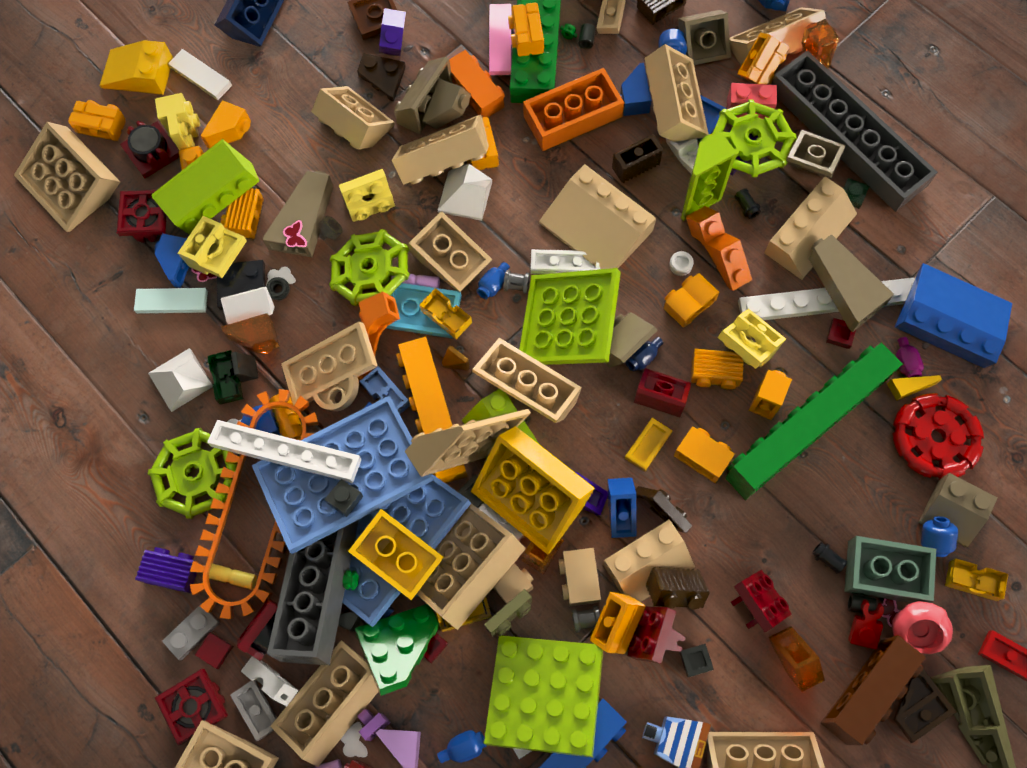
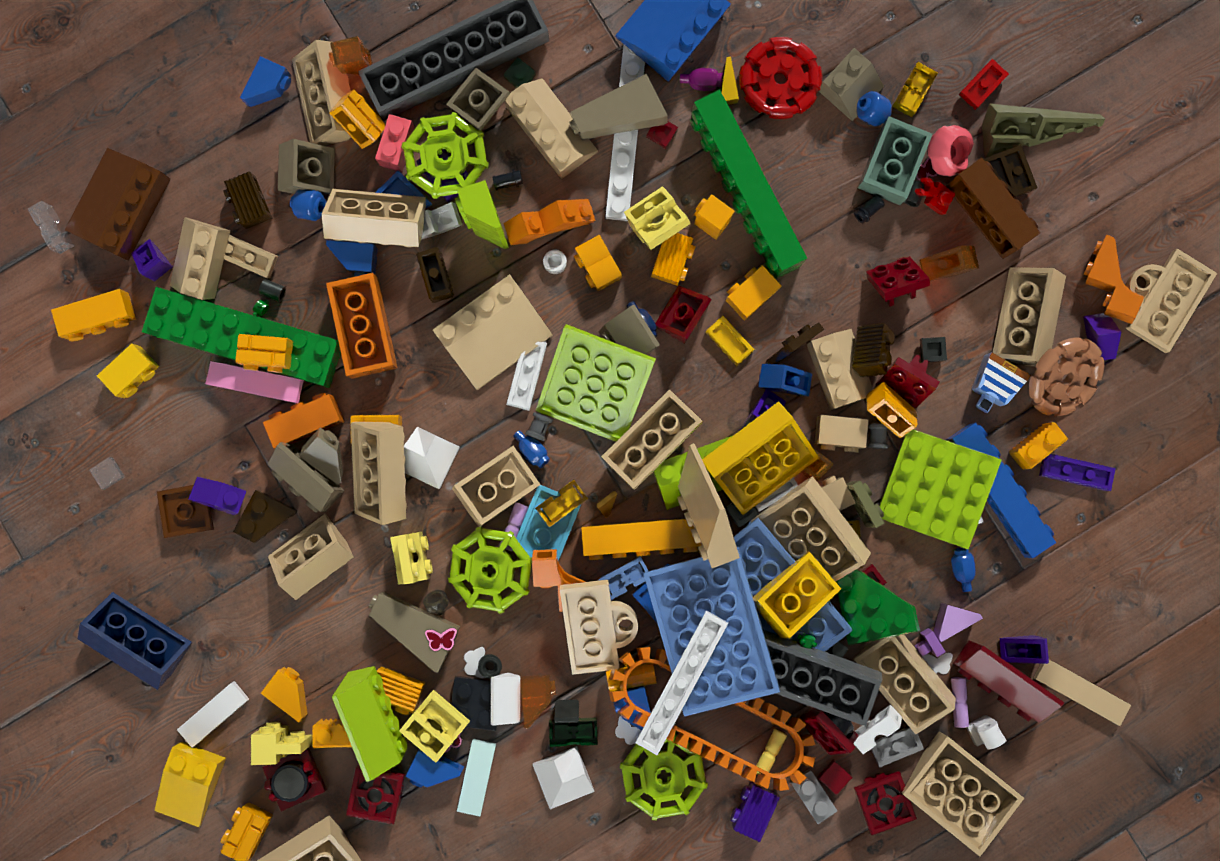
camera: 85 degrees left, 15 degrees up
(343, 497) = (741, 633): pearl dark grey plate -> none

